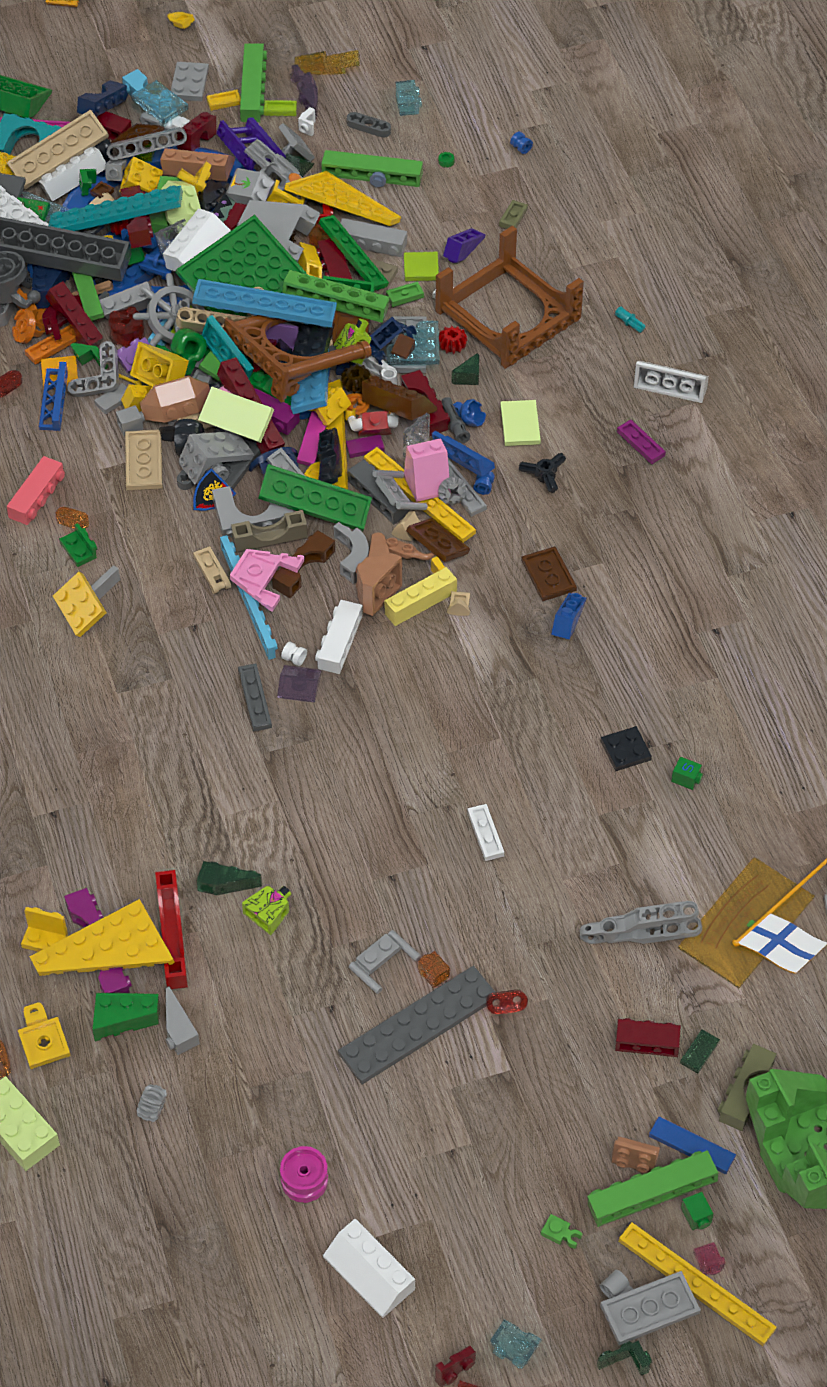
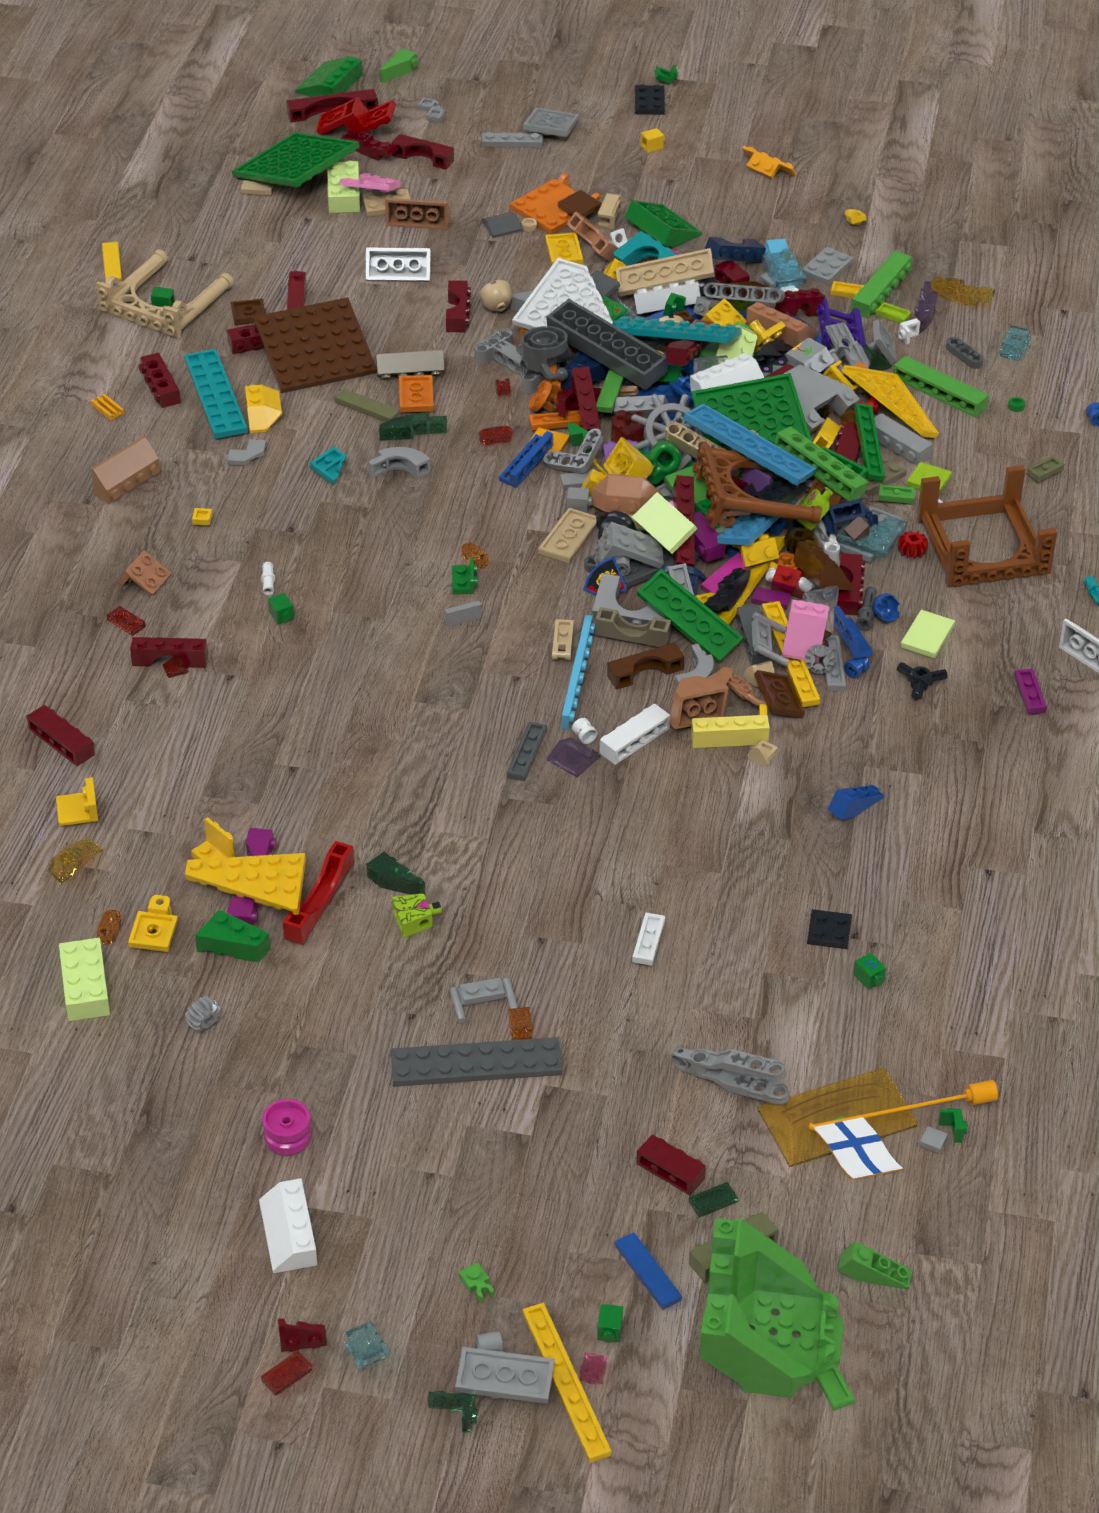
camera: 30 degrees right, 10 degrees down
(35, 490) = (458, 522): coral brick -> none
(79, 604) = (429, 619): yellow plate -> none
(179, 1028) = (269, 968): light grey slope -> none
(222, 345) = (691, 466): teal tile -> none
(256, 570) = (596, 650): bright pink wing -> none
(378, 179) = (939, 396): sand blue plate -> none
(462, 244) = (978, 474): dark purple slope -> none
(467, 372) = (907, 574): clear green slope -> none
(506, 1002) = (566, 1078): clear red plate -> none
(548, 573) = (863, 762): reddish brown tile -> none
(634, 1155) = (587, 1251): nougat bracket -> none
(652, 1188) = (582, 1284): bright green brick -> none

